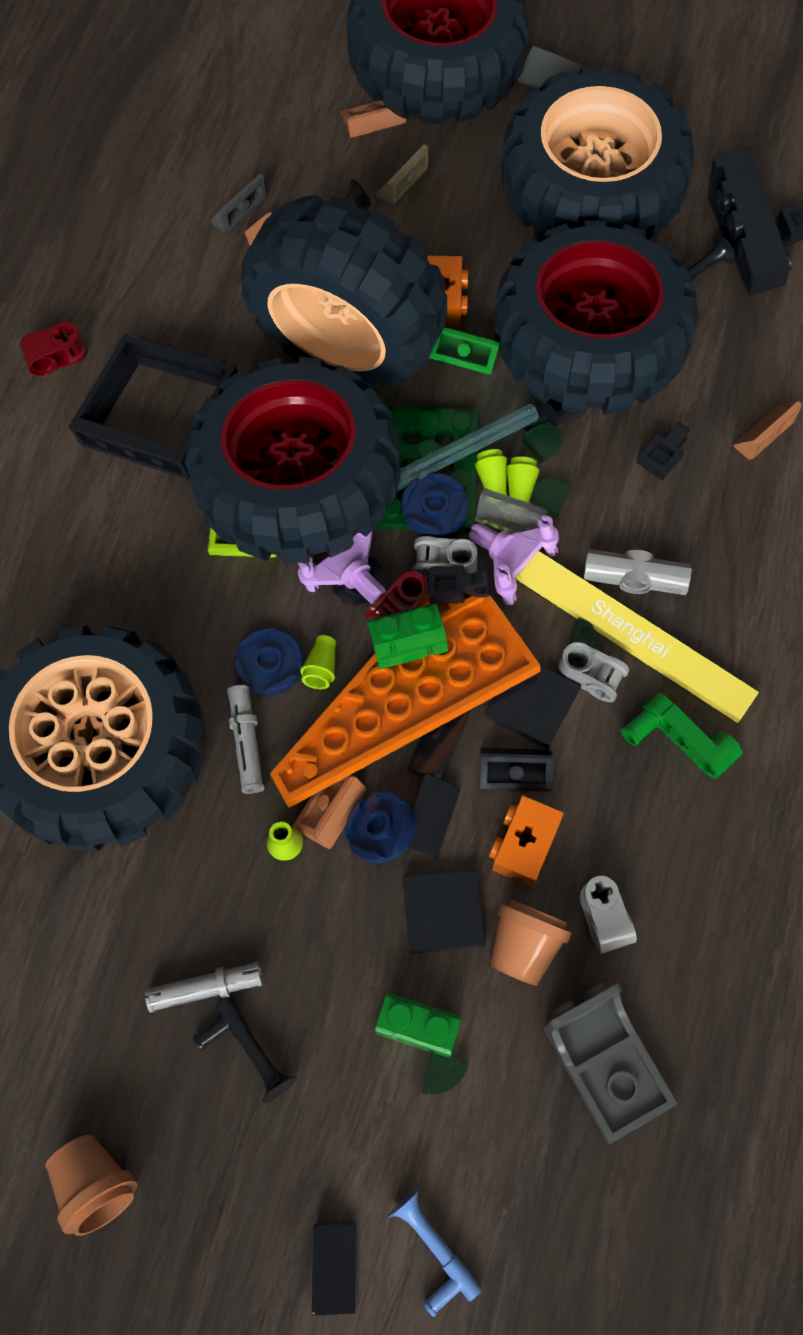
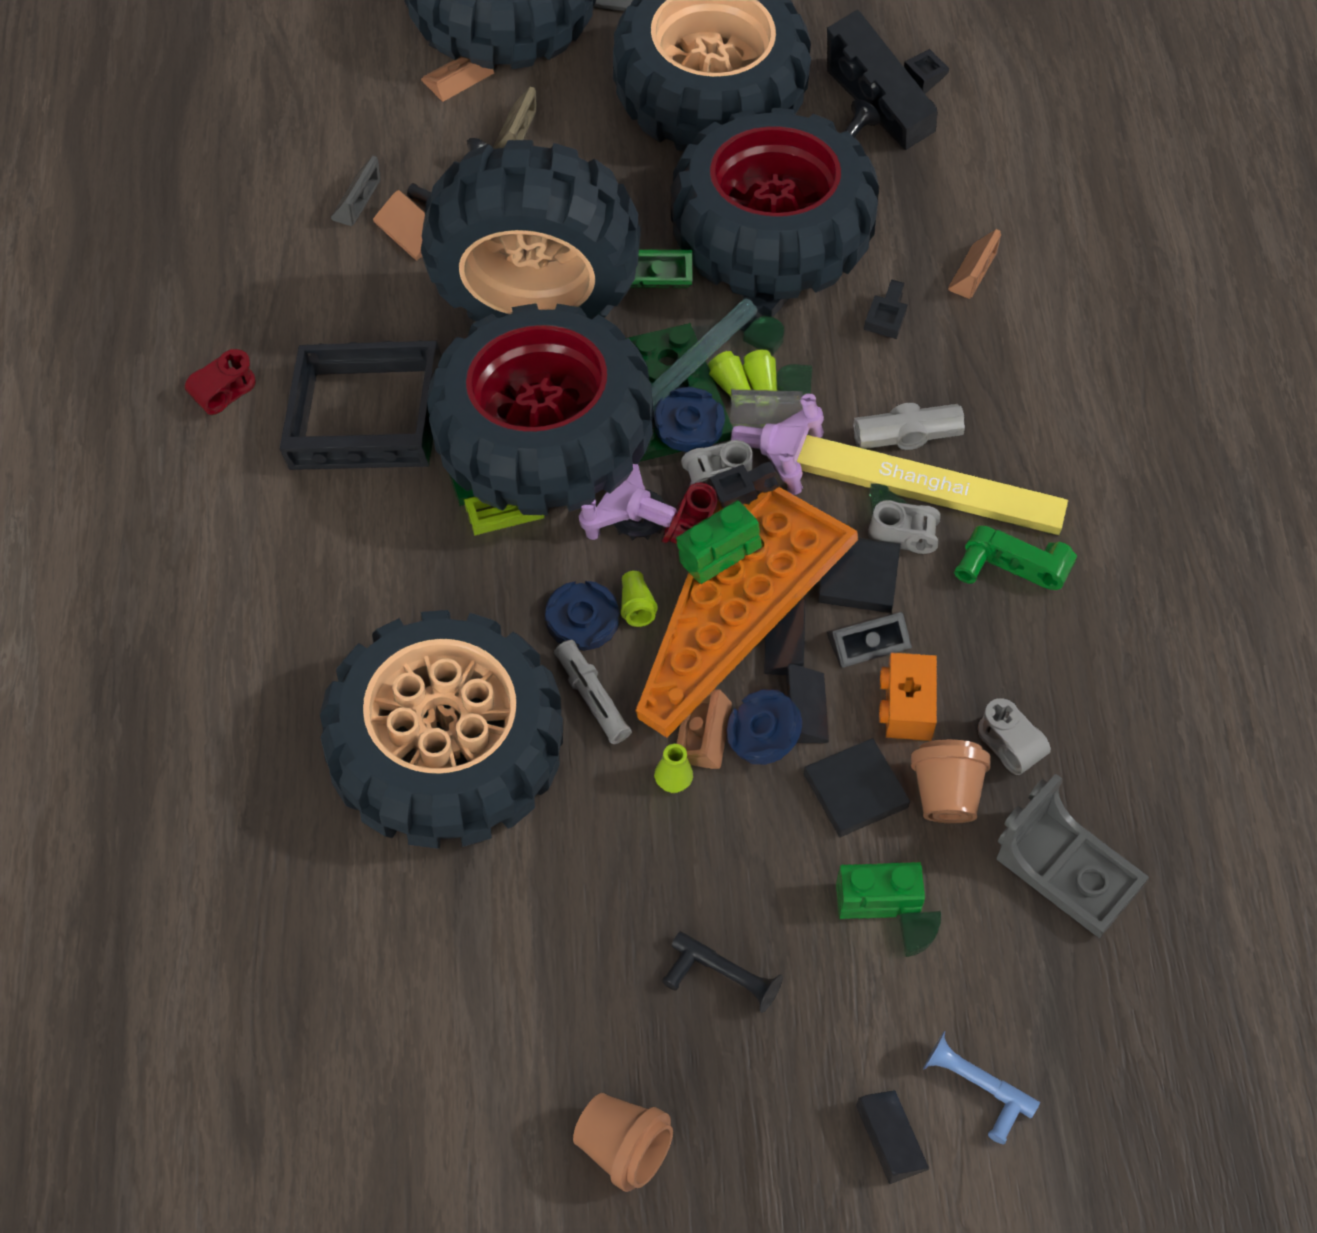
camera: 25 degrees left, 10 degrees down
(220, 983) = (666, 921): light grey pin -> none

